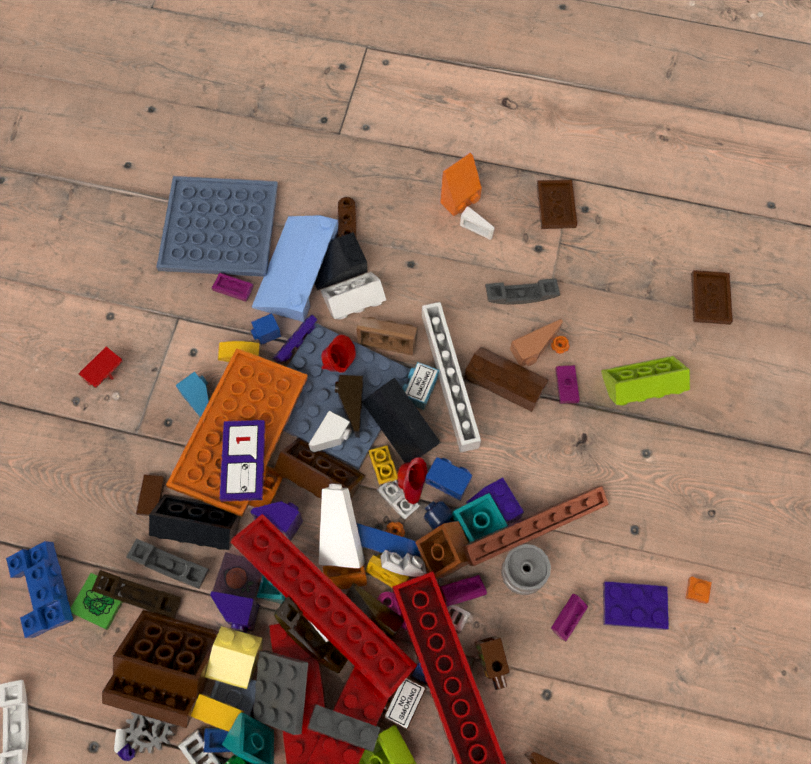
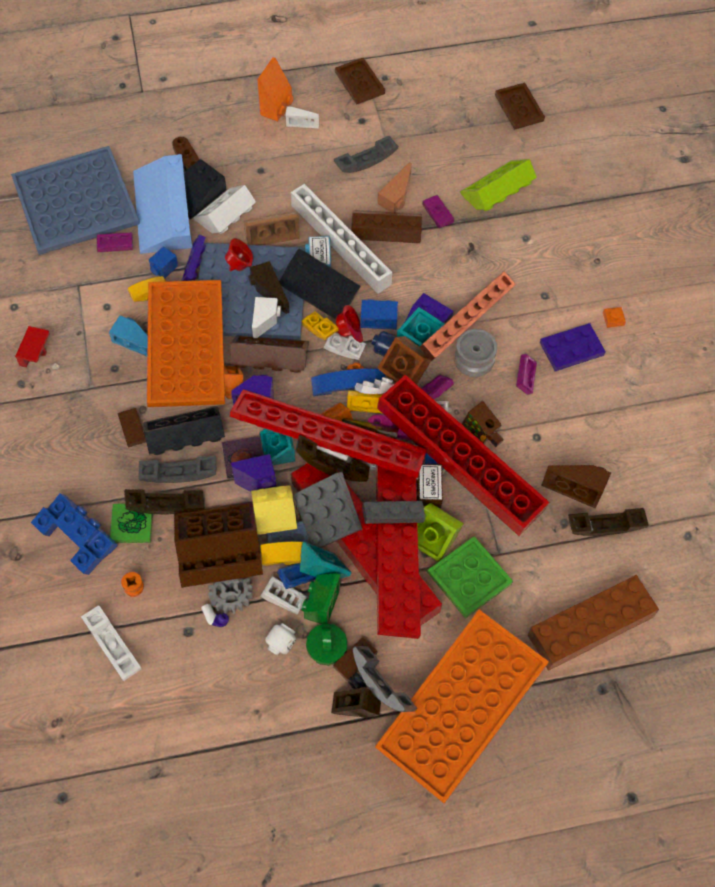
camera: 25 degrees left, 5 degrees down
(69, 673) = (135, 588): none -> orange wheel
(242, 460) = (203, 359): tile -> none
(338, 530) = (311, 384): white slope -> none
(560, 340) = (417, 184): orange plate -> none

